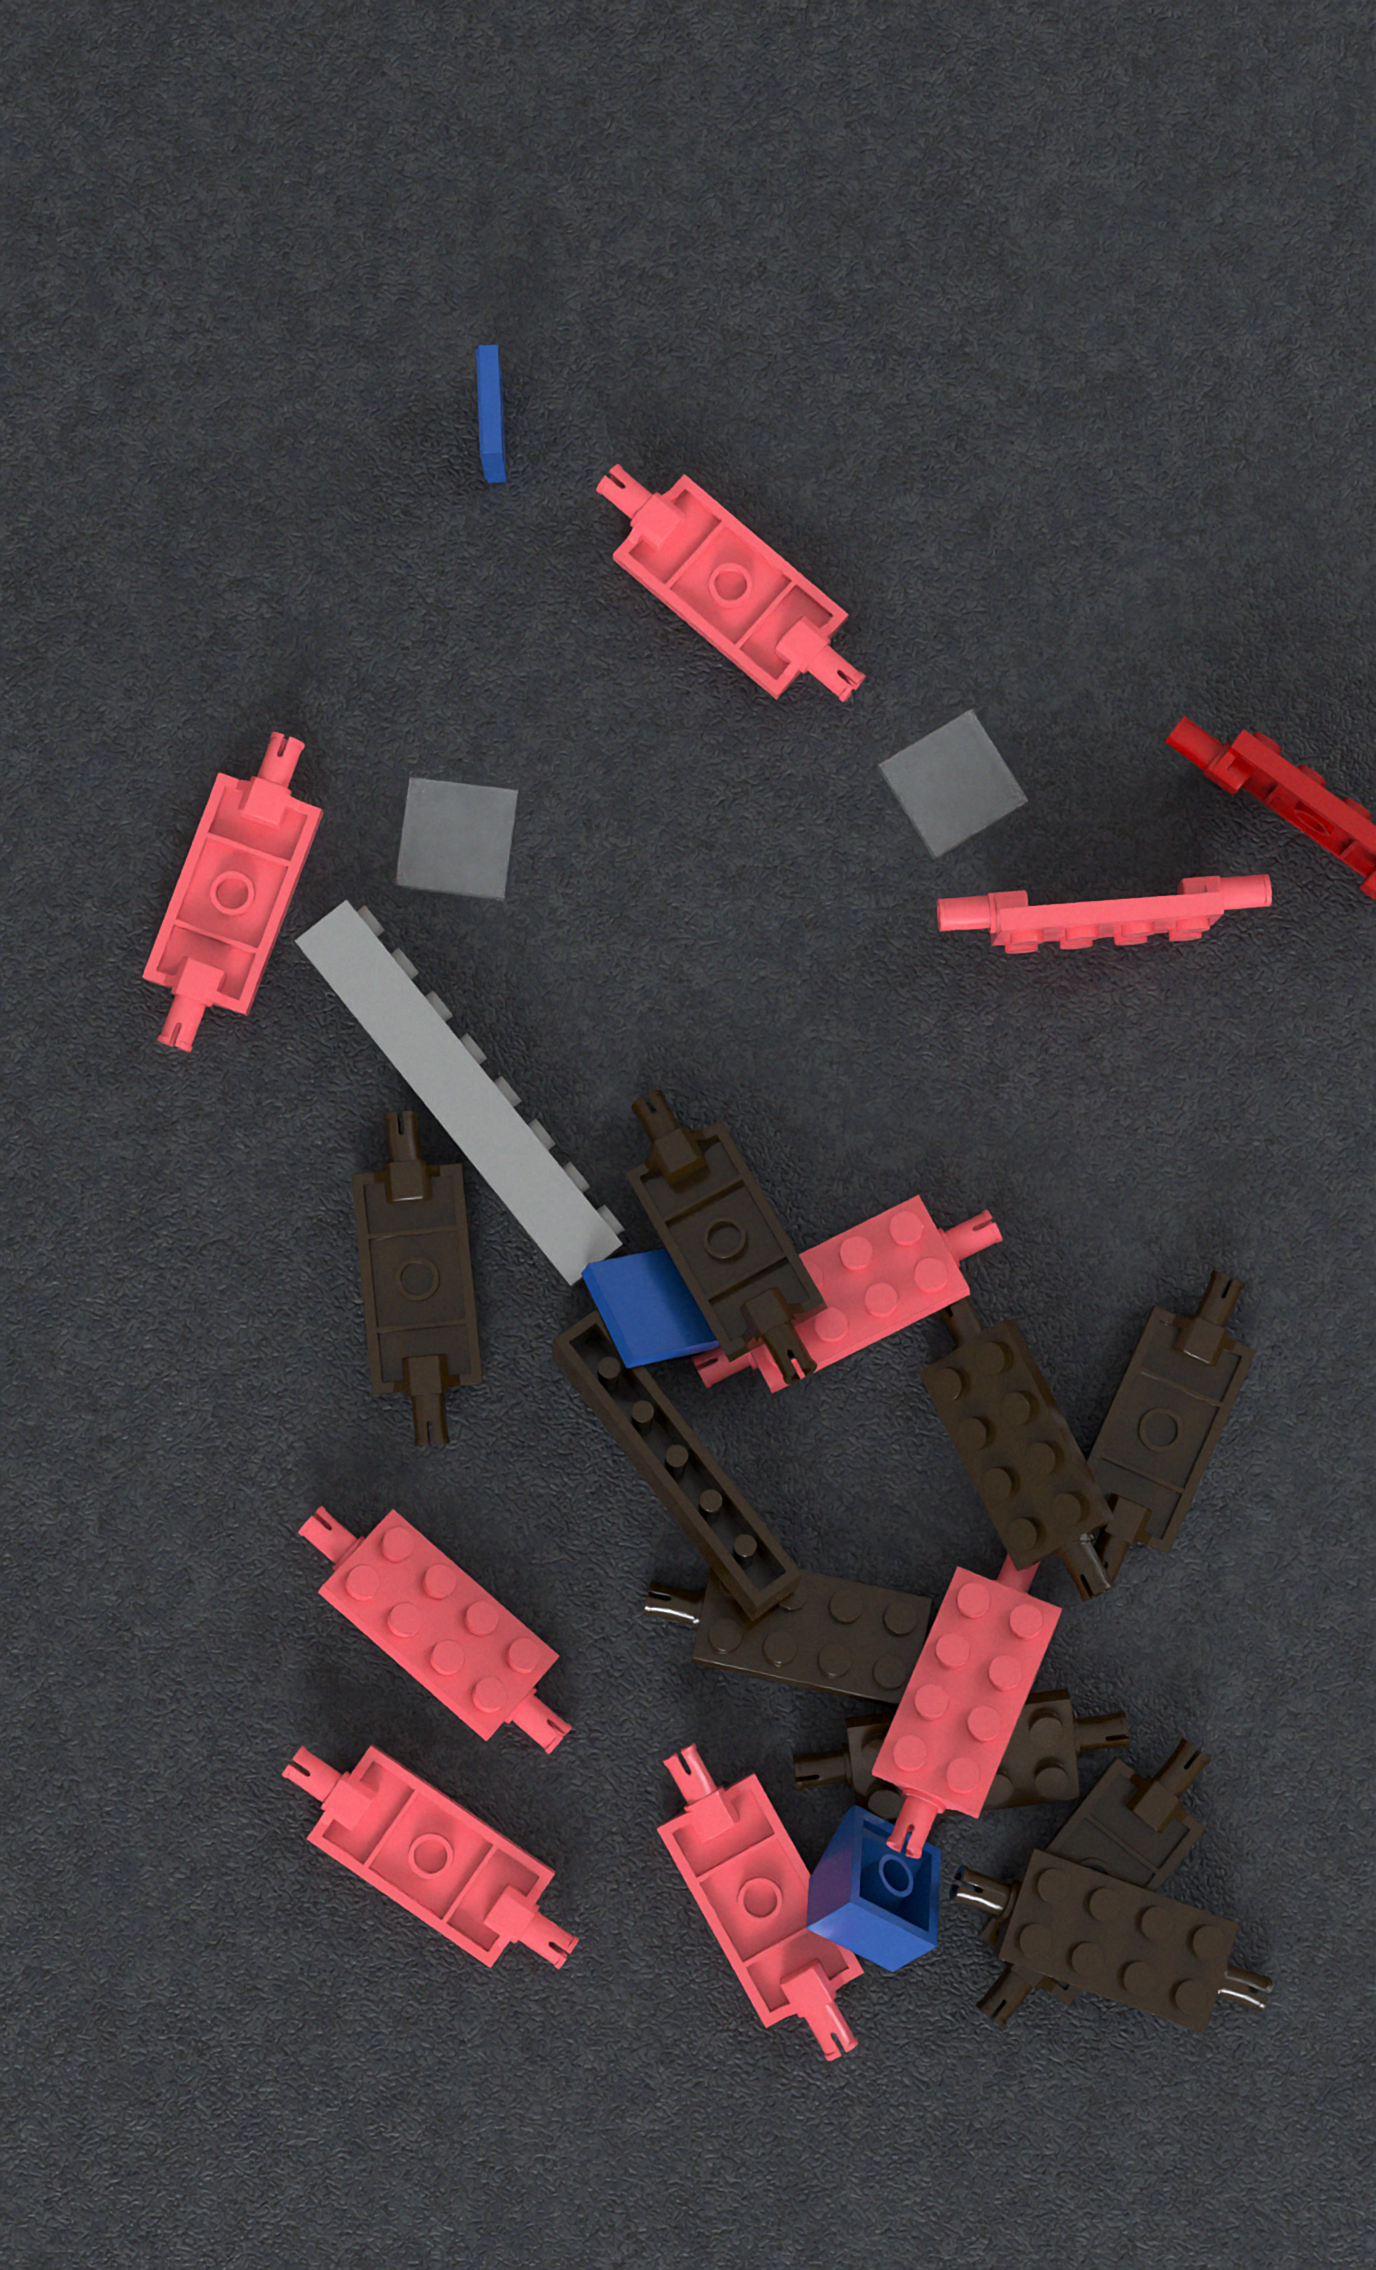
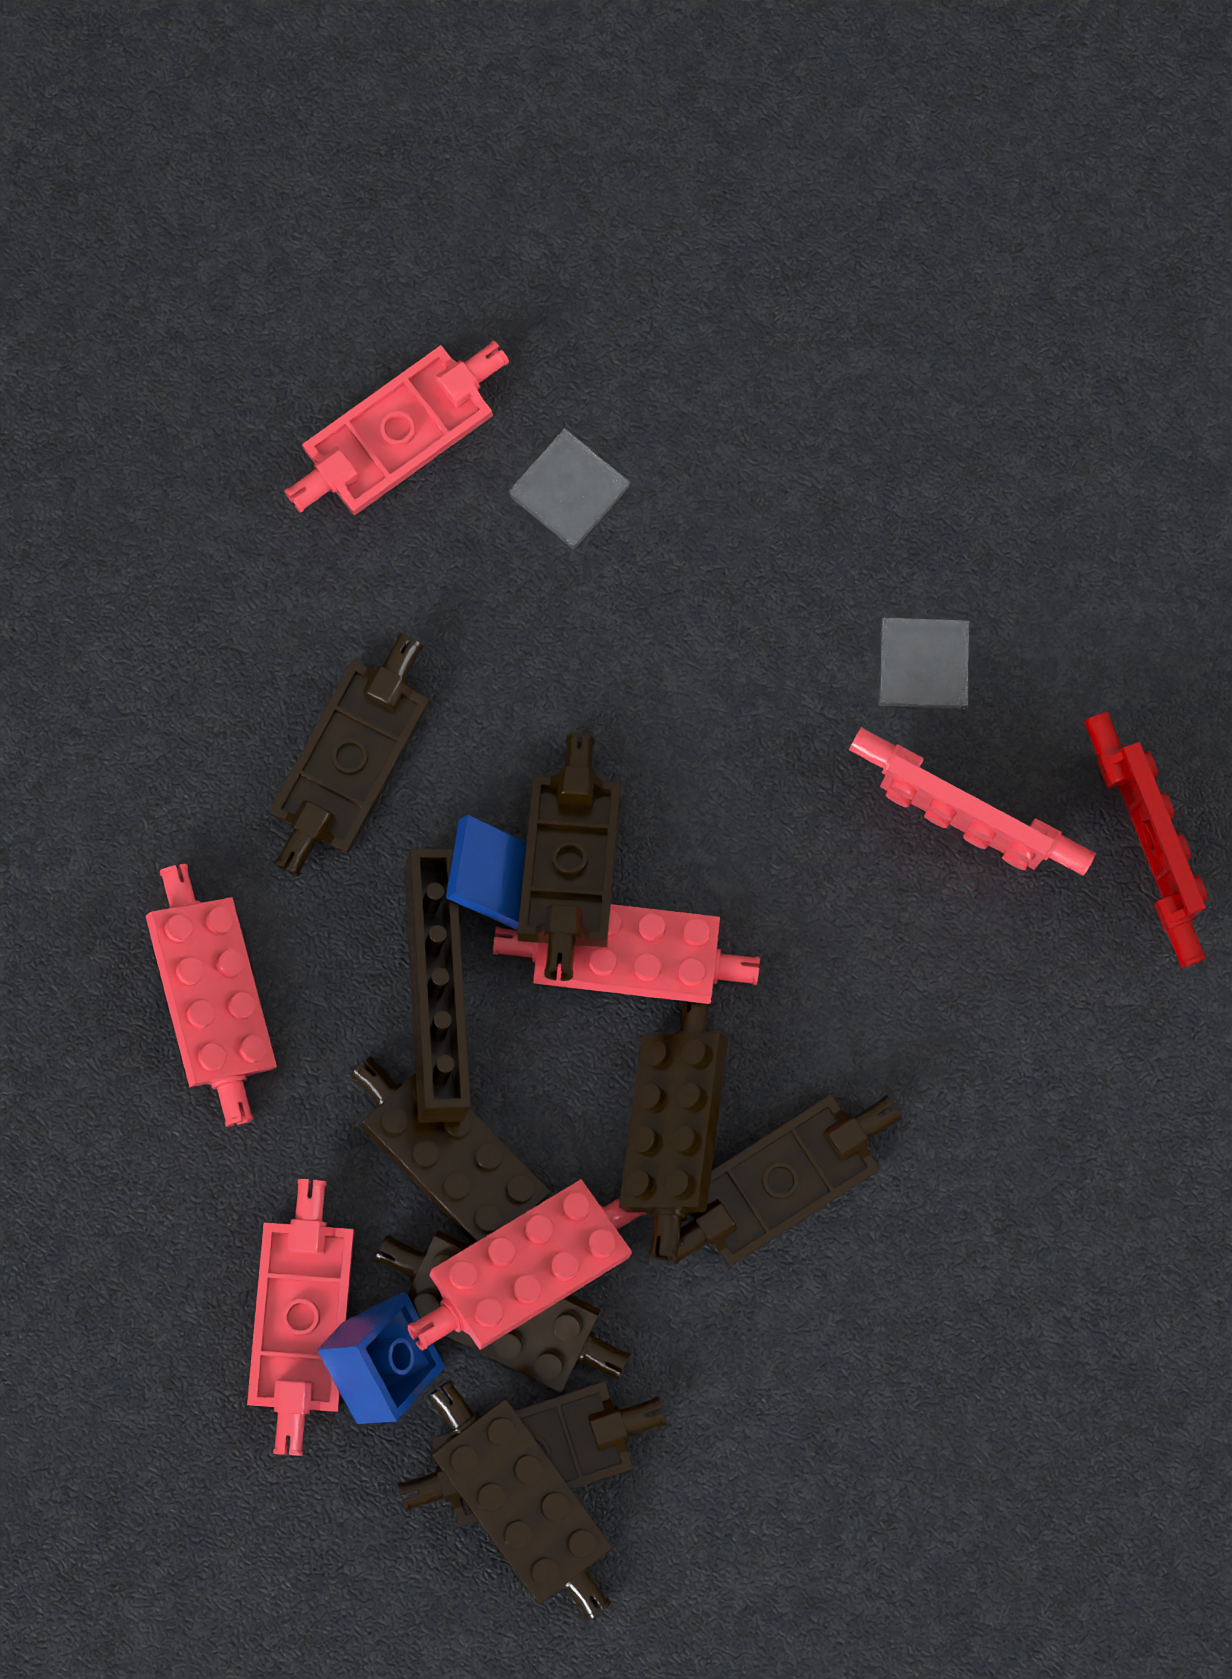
camera: 35 degrees right, 5 degrees down
(431, 1856) = (102, 1141): coral plate -> none
(459, 1092) = (459, 652): light grey brick -> none
(491, 413) = (774, 225): blue tile -> none
(729, 585) = (859, 437): coral plate -> none

